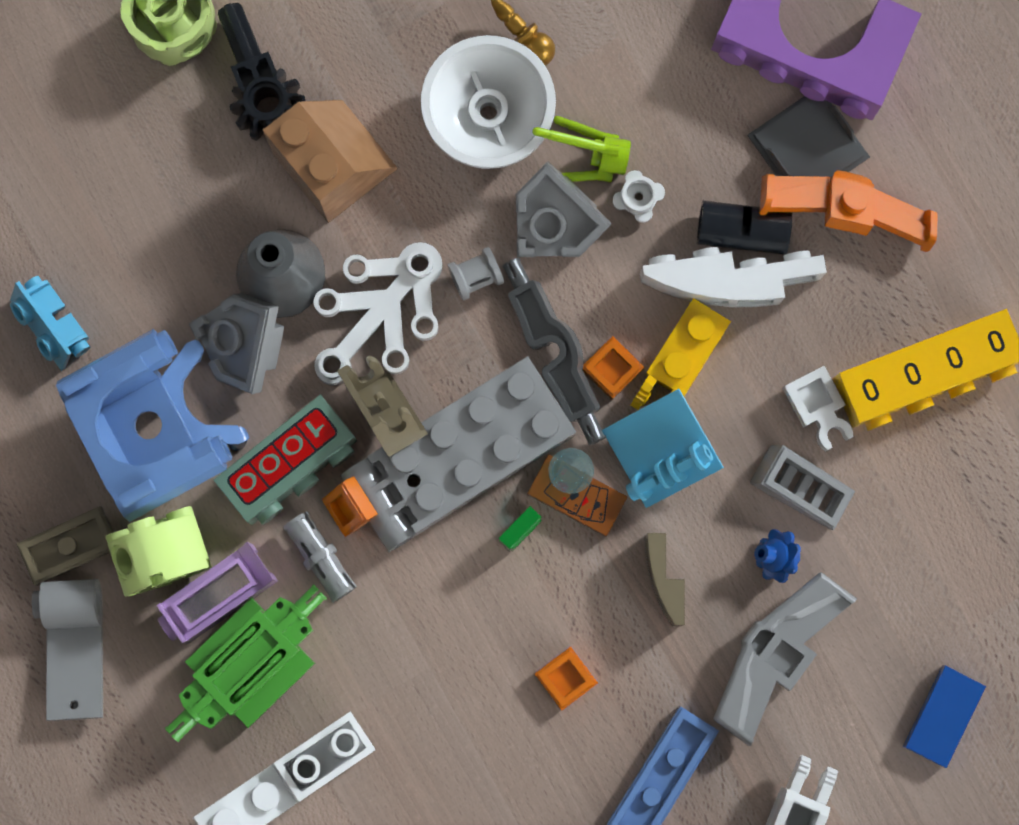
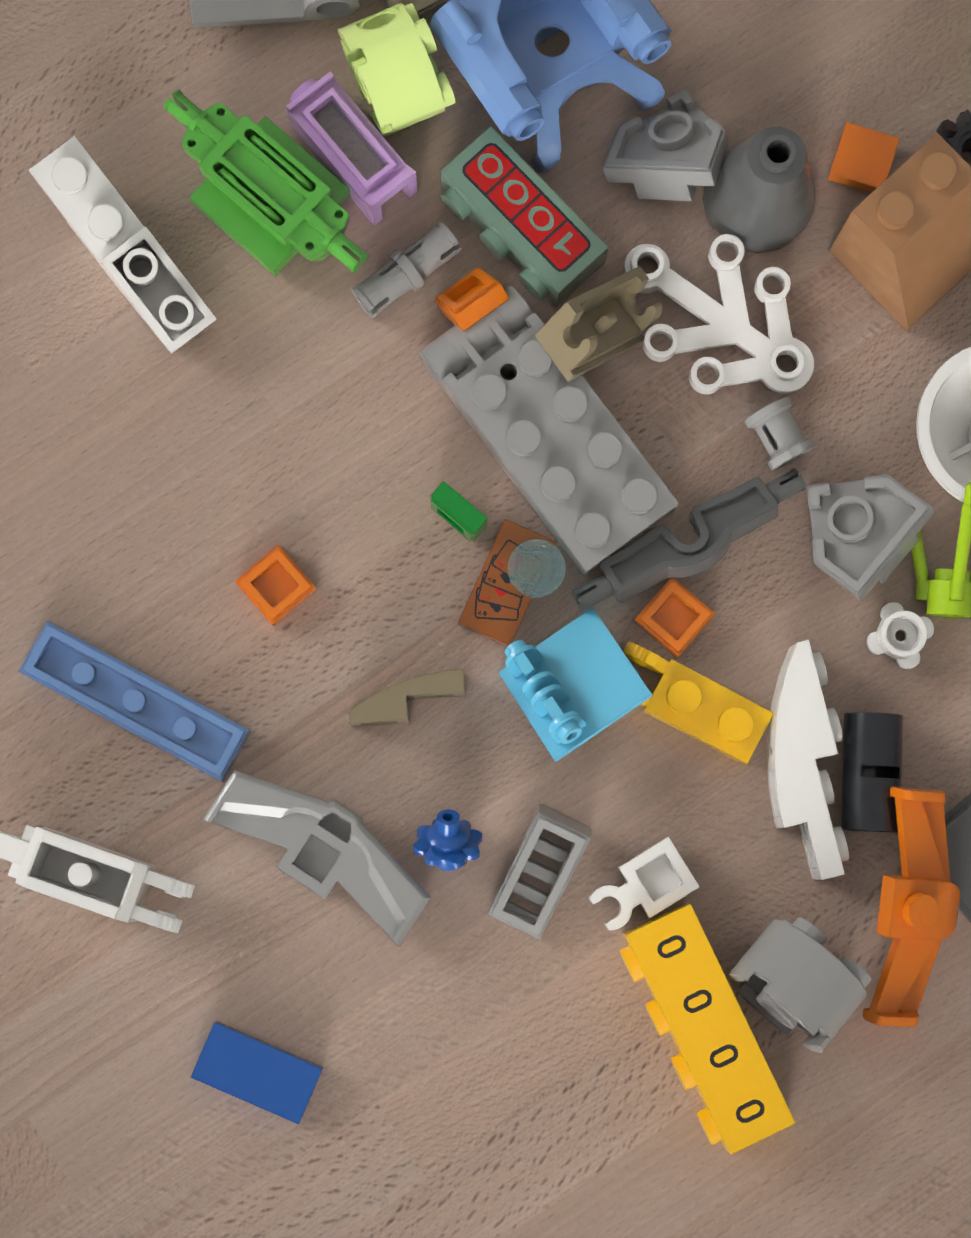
camera: 85 degrees right, 0 degrees up
(257, 189) = (862, 157): none -> orange tile
(902, 296) = (800, 982): none -> light grey brick

